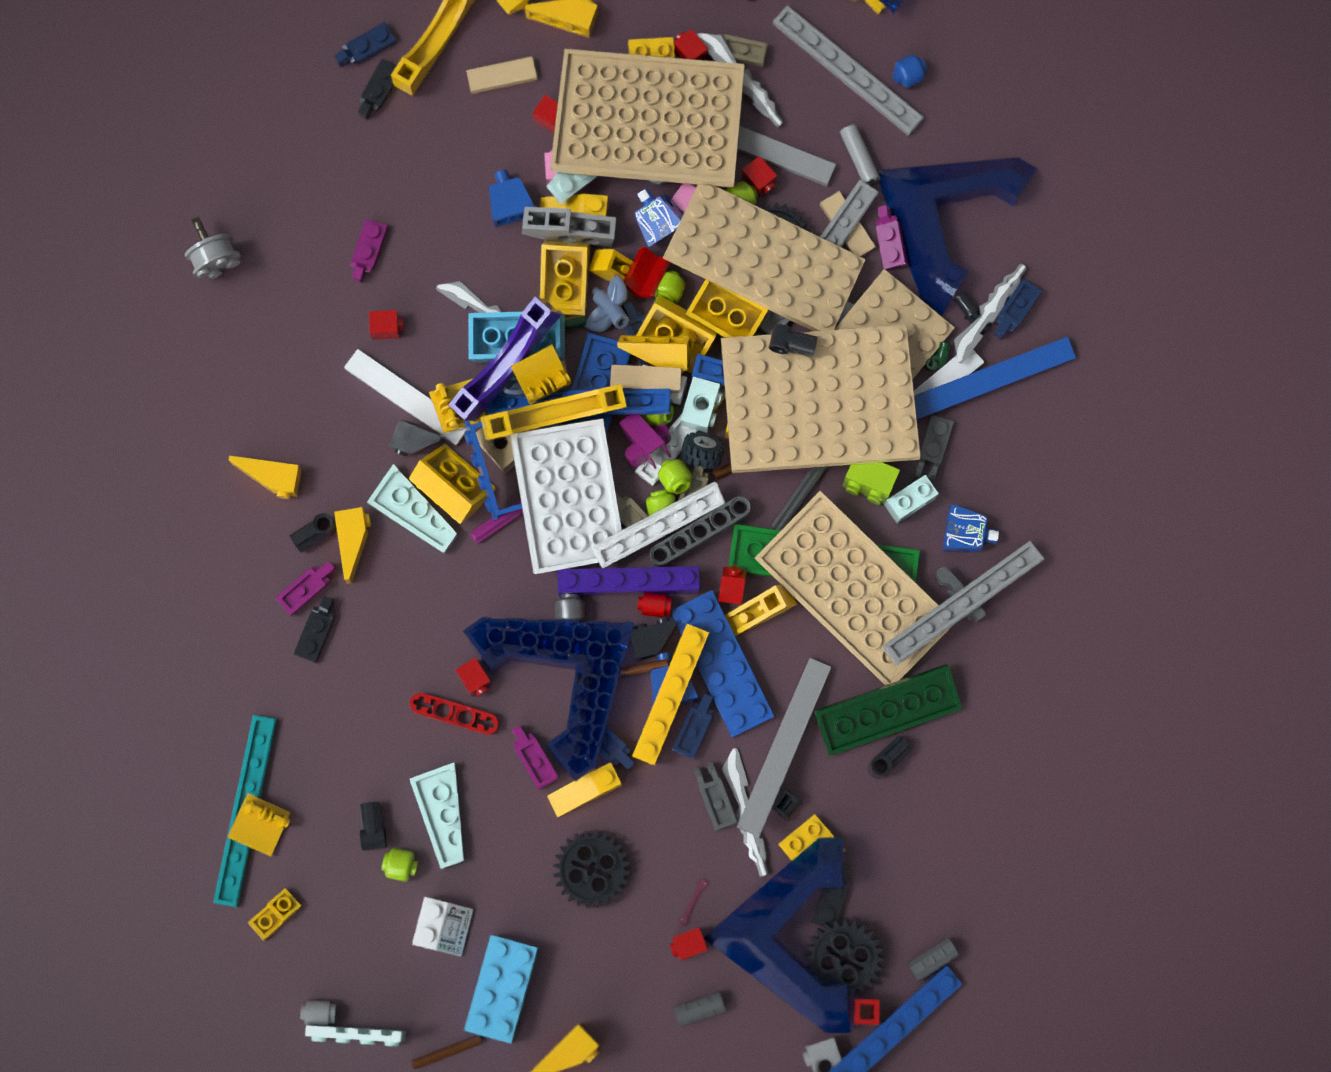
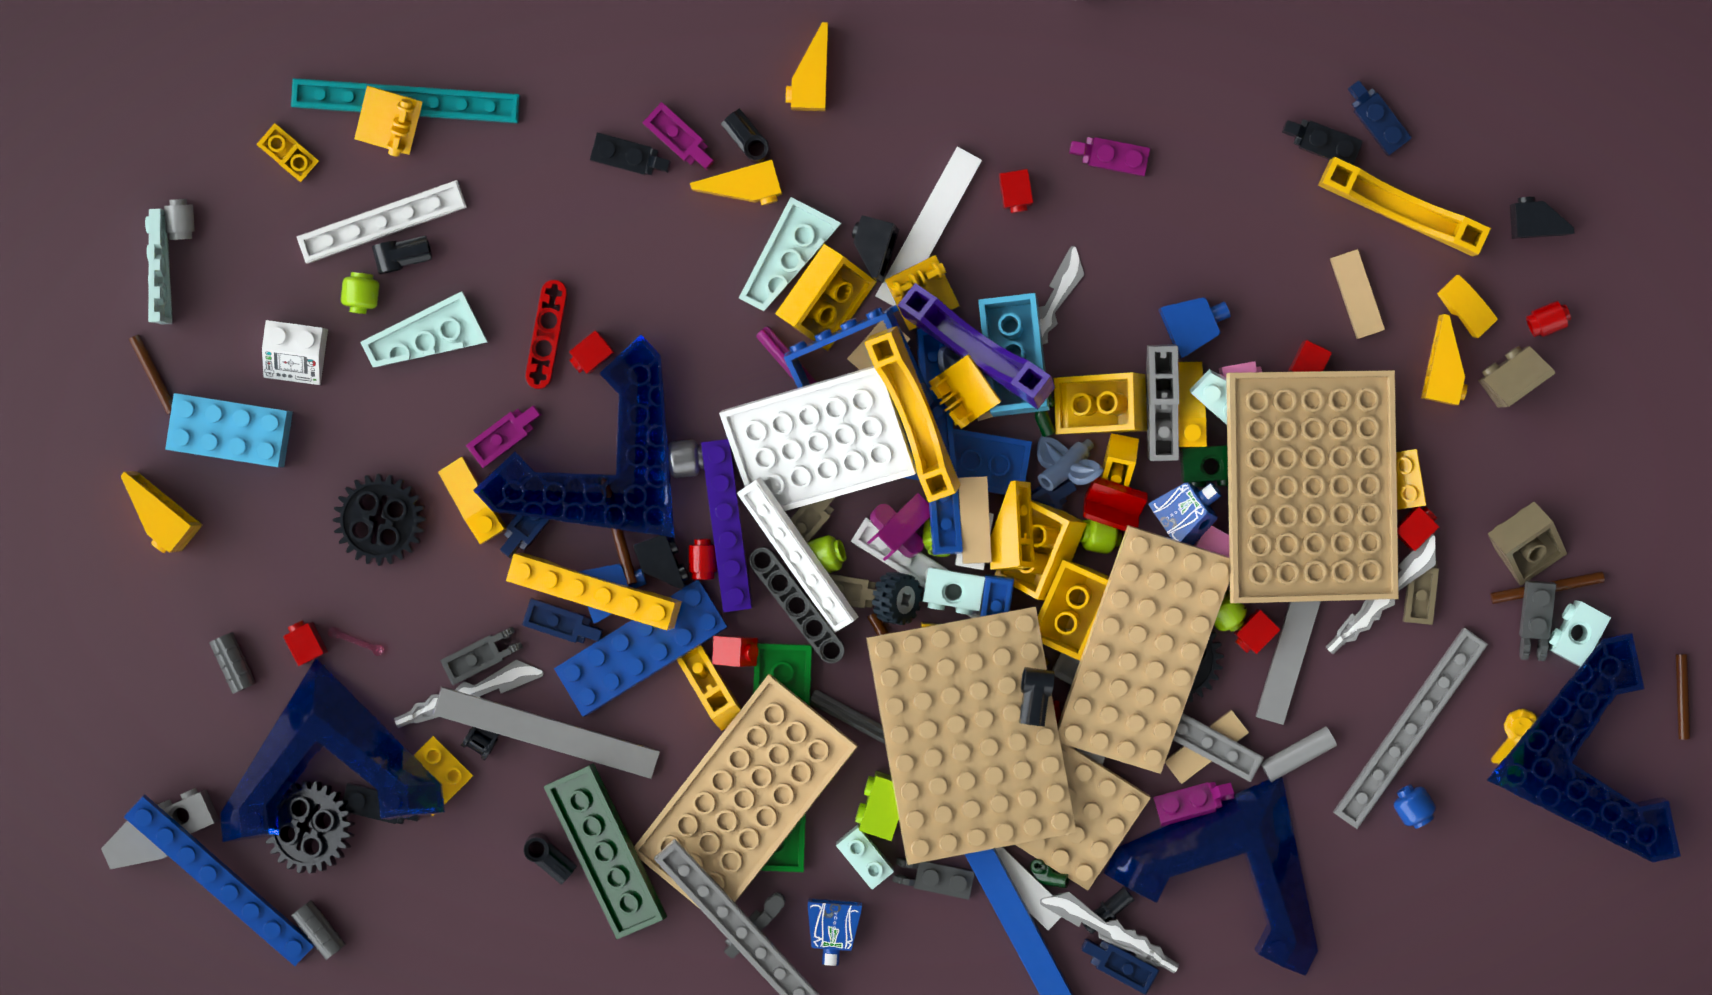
camera: 85 degrees right, 10 degrees up
(343, 841) = (381, 222): none -> white tile
(623, 210) = (1192, 465): none -> dark green brick
(675, 476) = (860, 567): lime head -> none
(865, 1011) = (248, 857): red brick -> none

